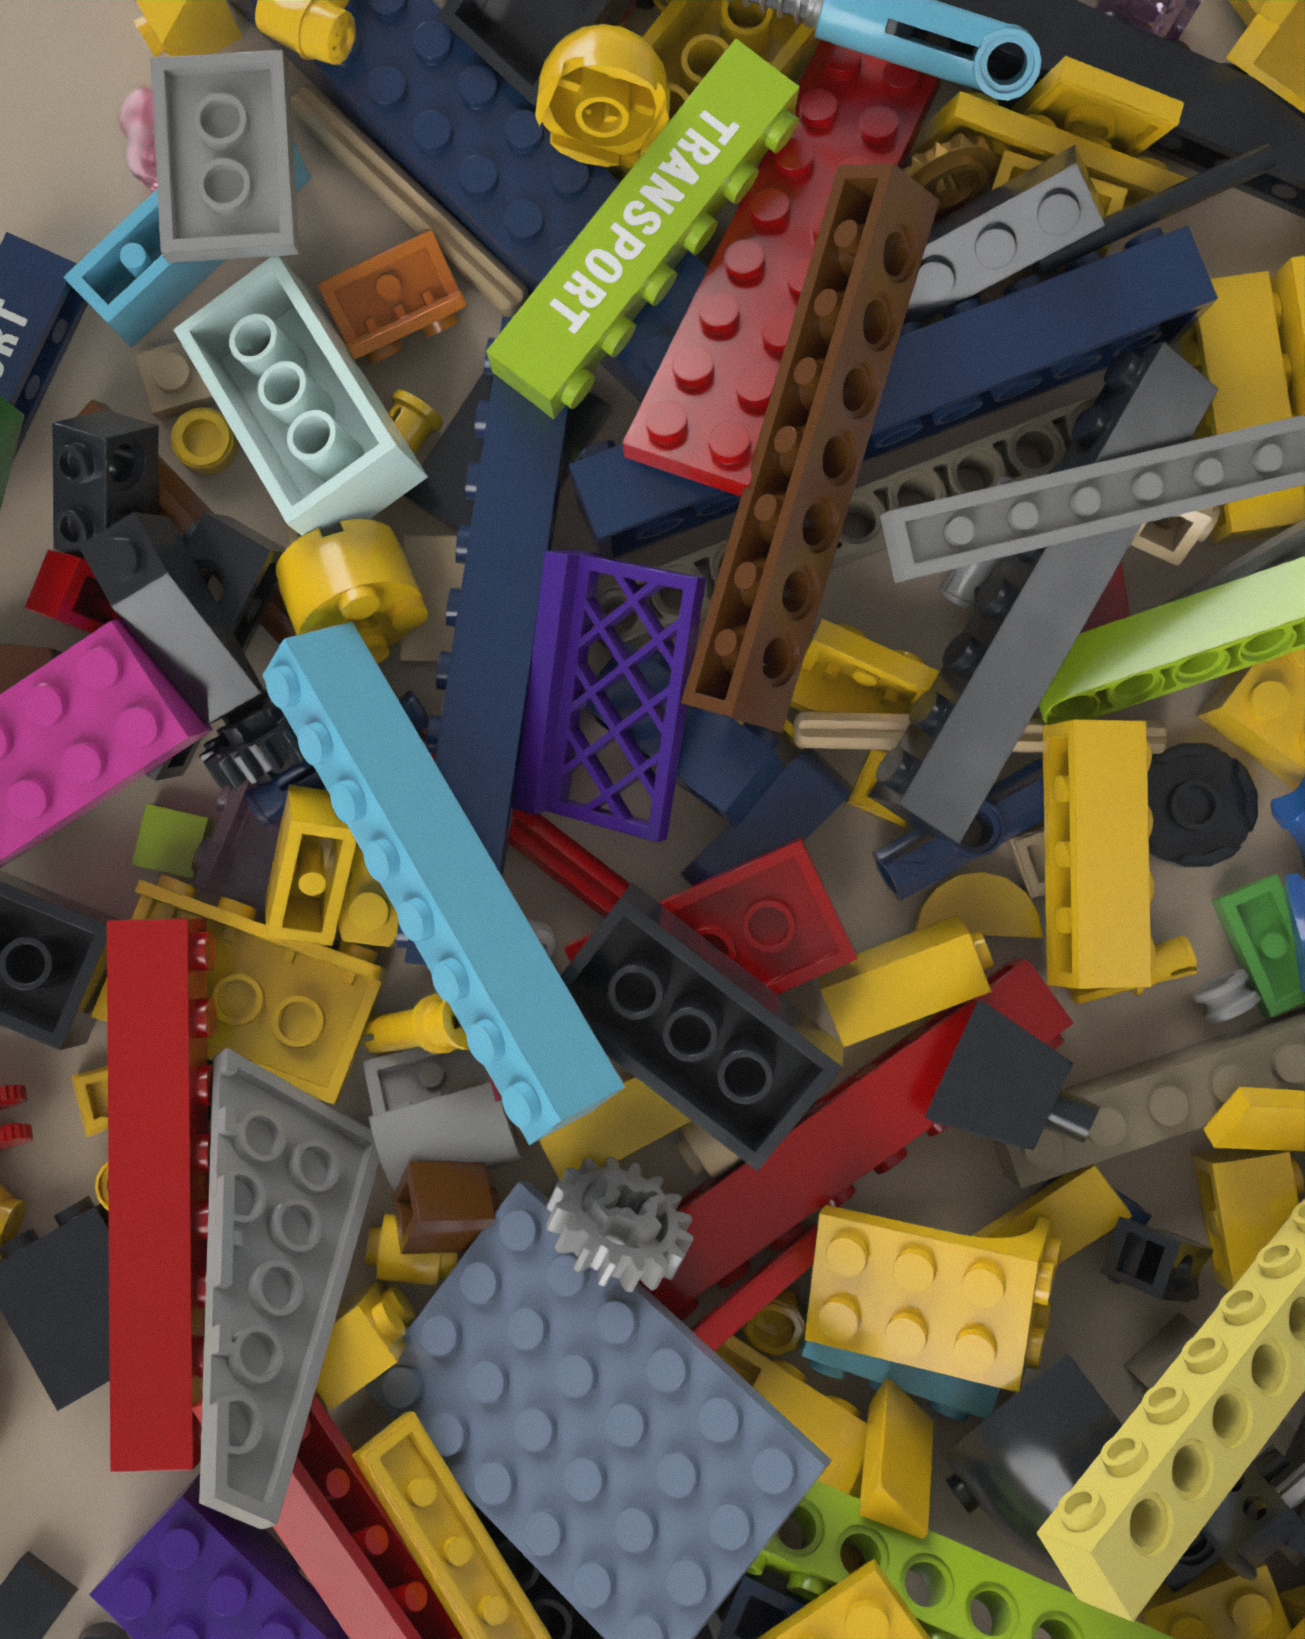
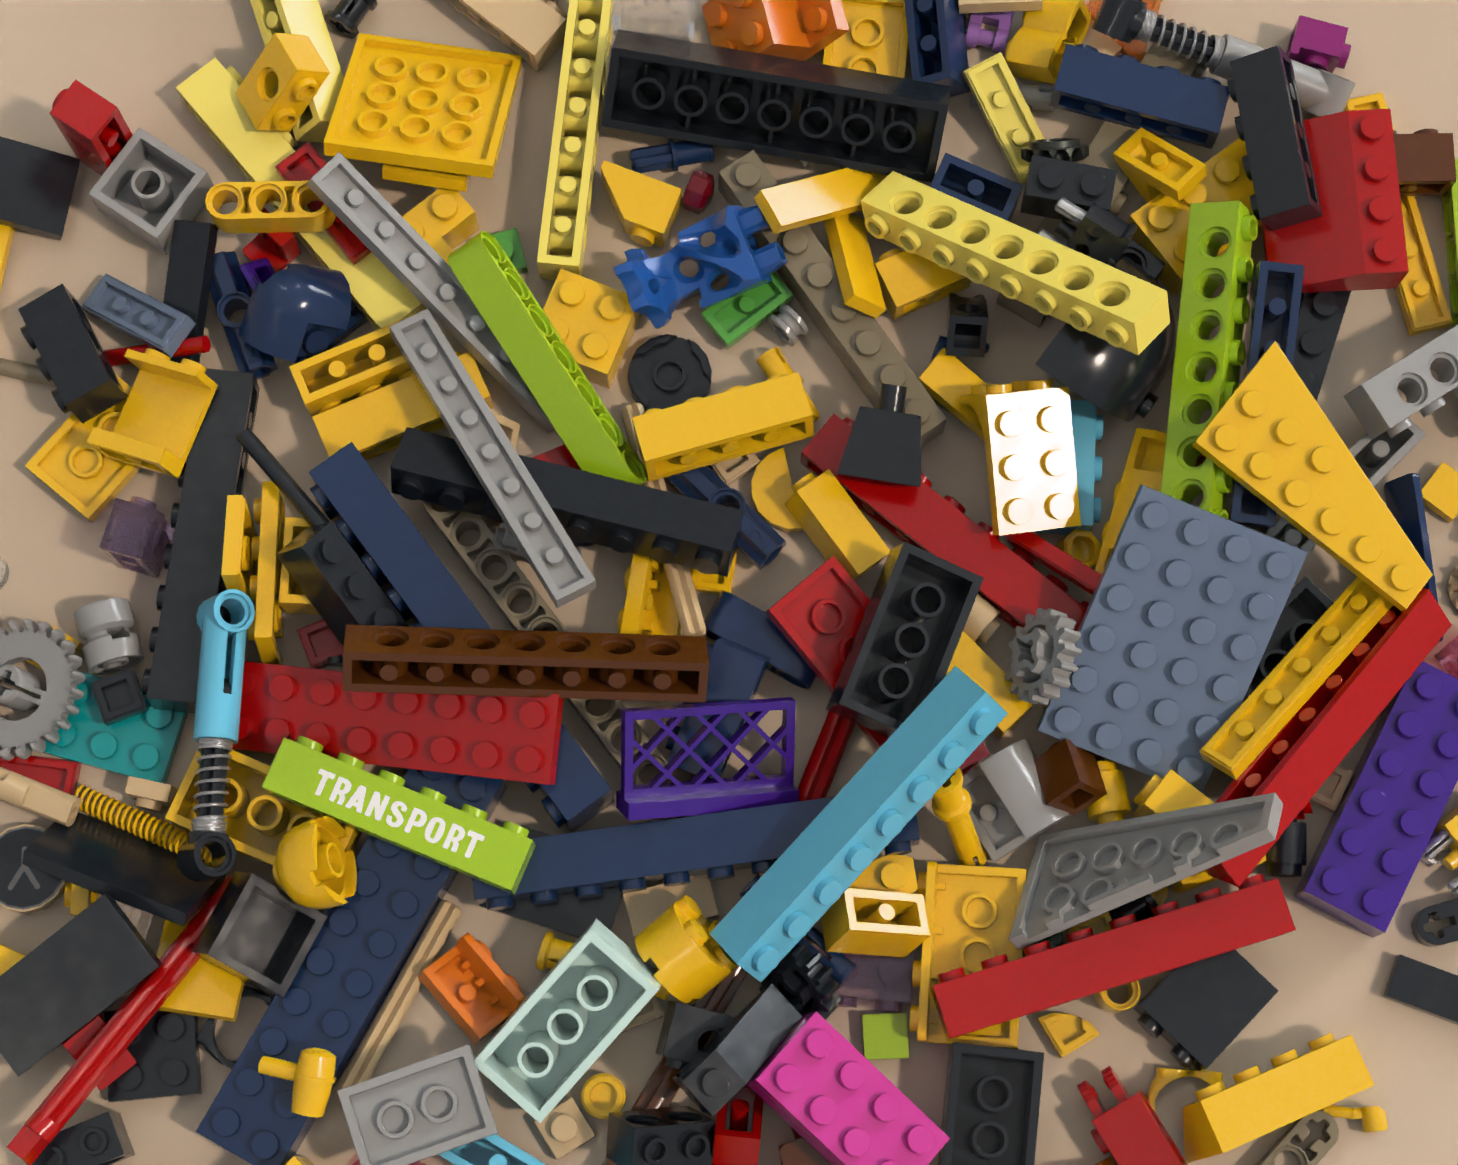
camera: 105 degrees left, 10 degrees down
(897, 1462) = (1135, 449): yellow slope -> none
(954, 170) = (303, 636): pearl gold gear -> none

